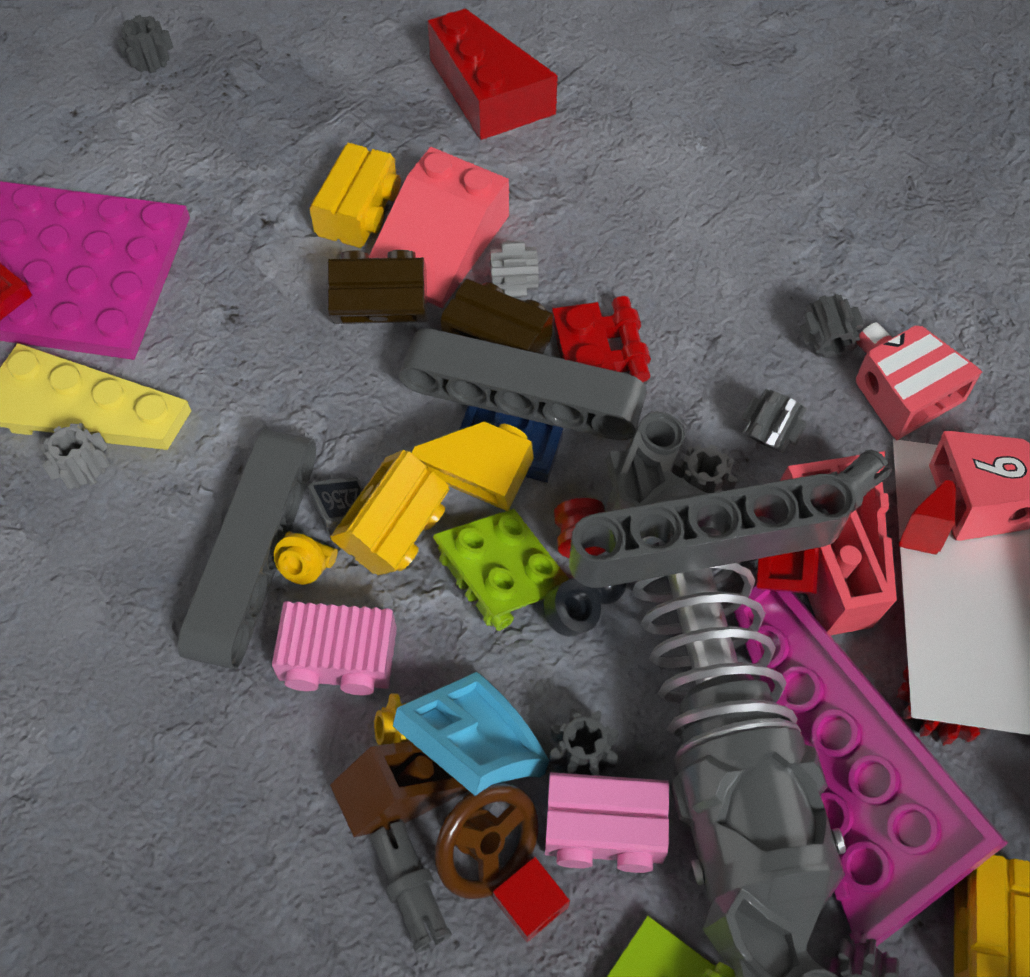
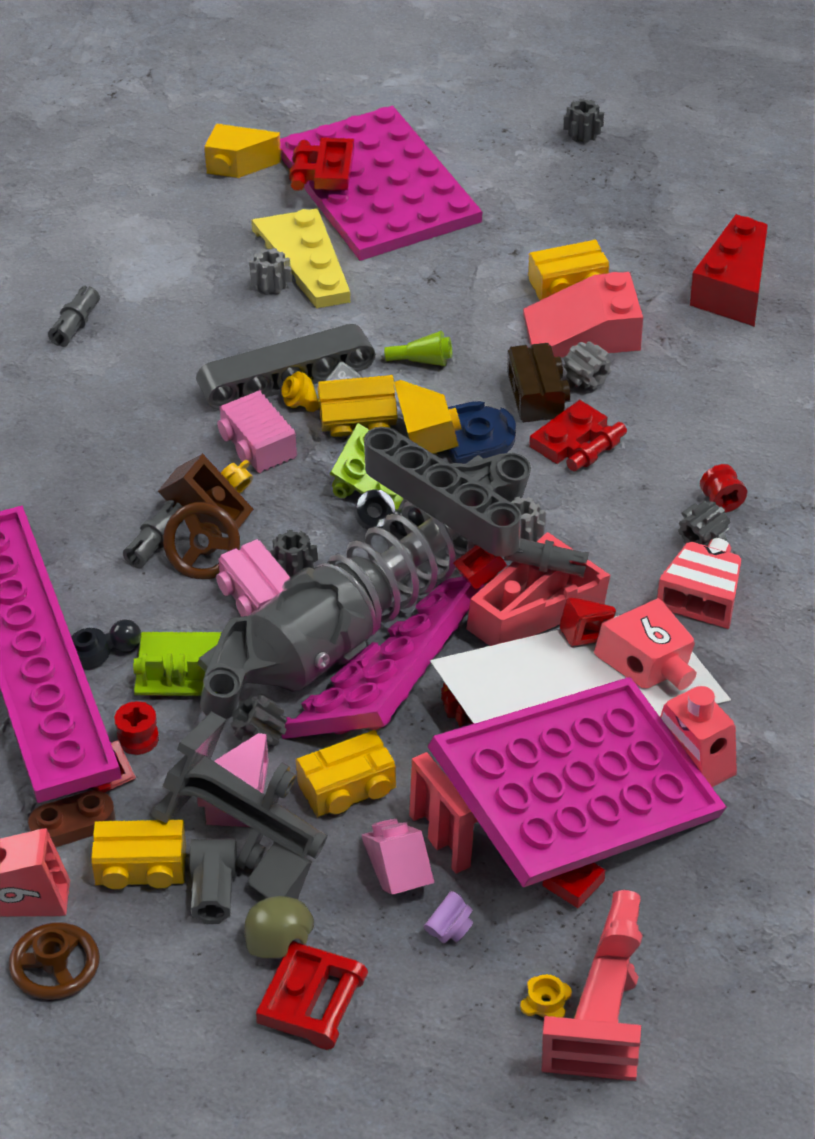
camera: 55 degrees right, 15 degrees down
(354, 387) = (430, 349): none -> lime cone
(377, 288) = (503, 315): dark brown brick -> none
(472, 734) = (255, 501): medium azure plate -> none
(524, 384) = (498, 404): dark grey beam -> none
(531, 899) = (189, 583): red piece -> none
(774, 420) = (596, 531): dark grey gear -> none
(784, 277) = (723, 487): none -> red wheel

